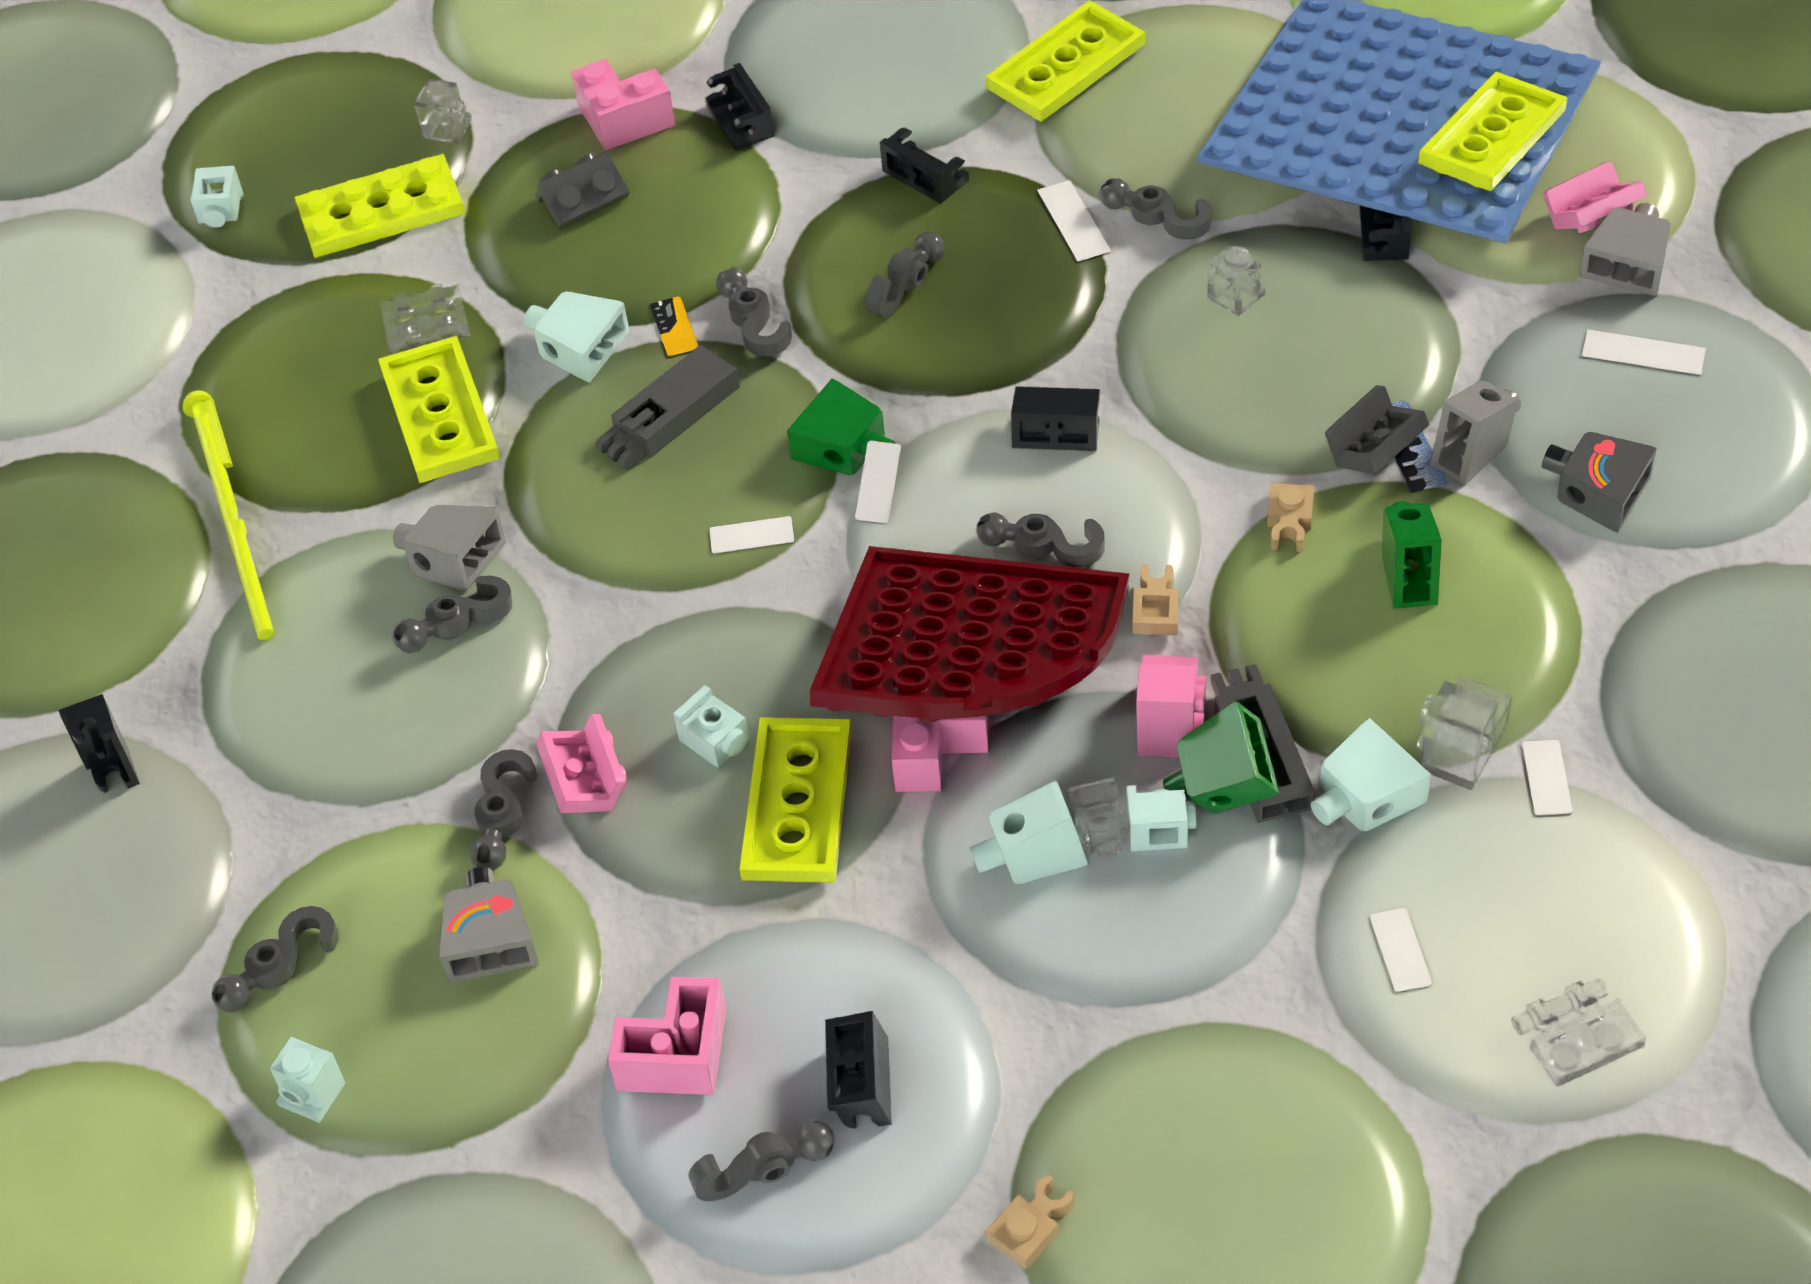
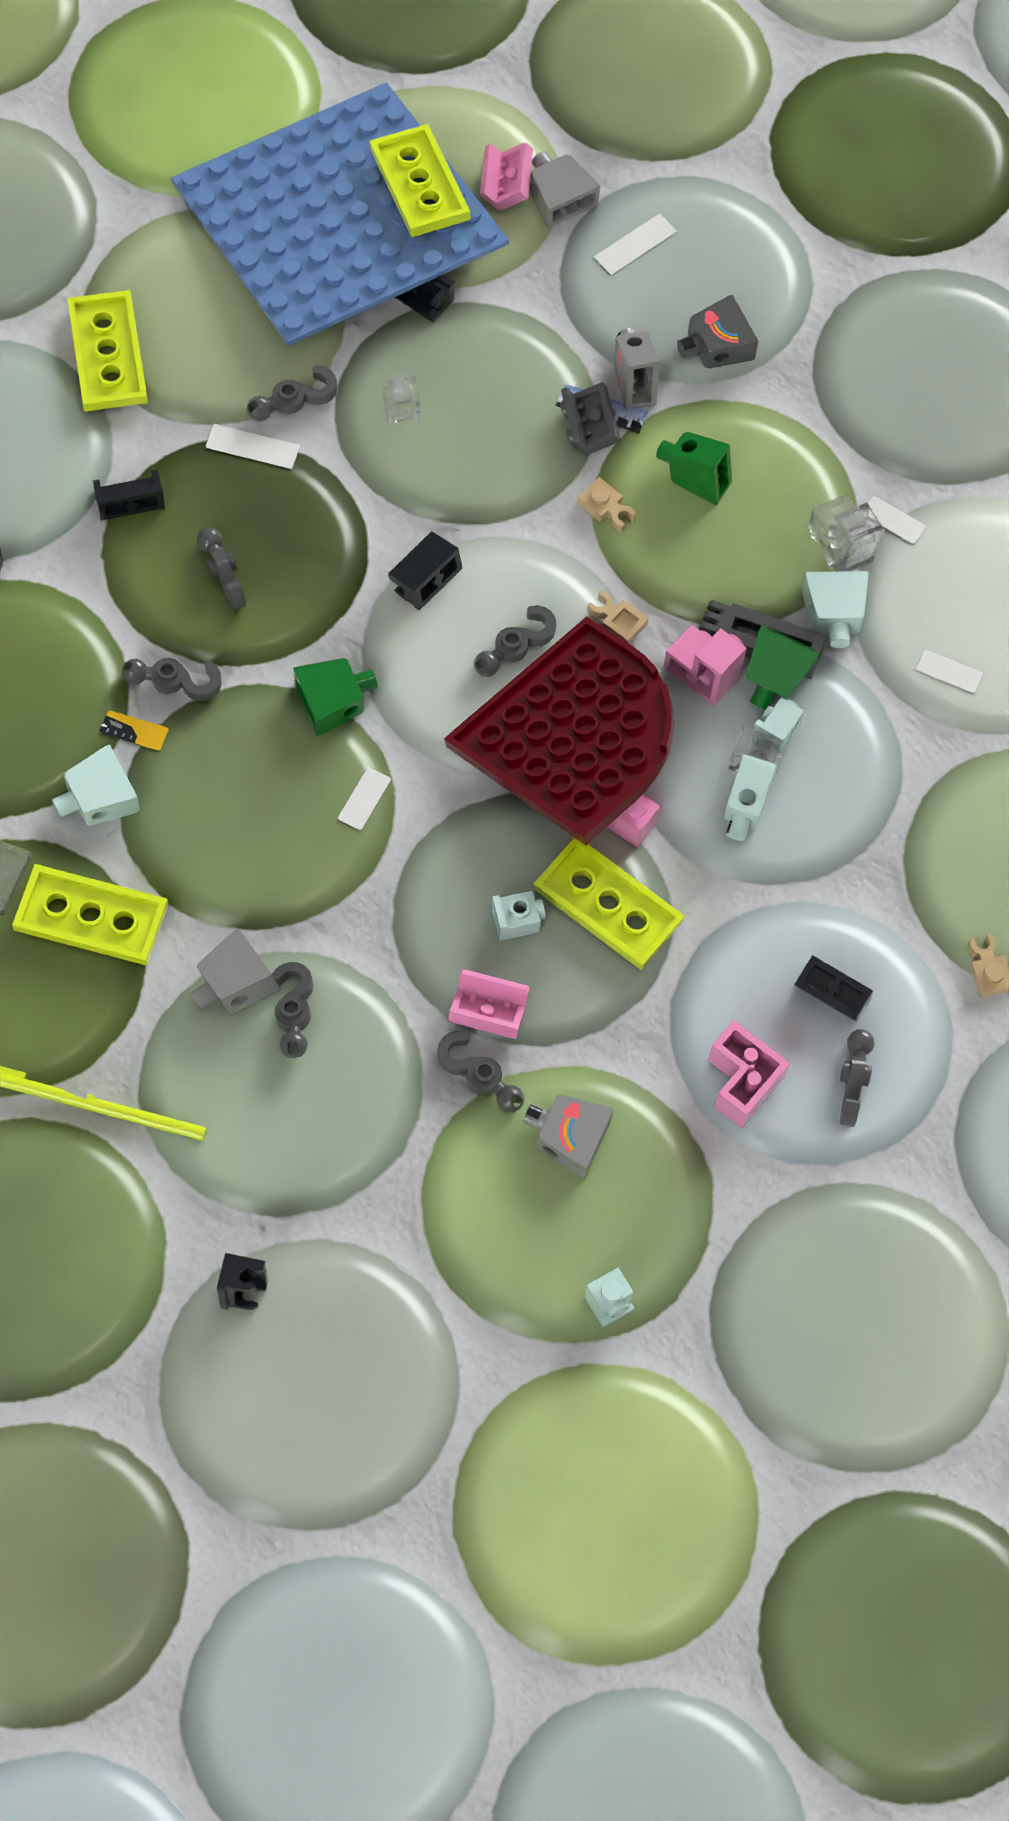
camera: 65 degrees left, 15 degrees up
(273, 960) = (497, 1269): dark grey piece -> none
(685, 394) = (213, 762): dark grey hinge -> none
(878, 482) = (392, 700): white sticker -> none

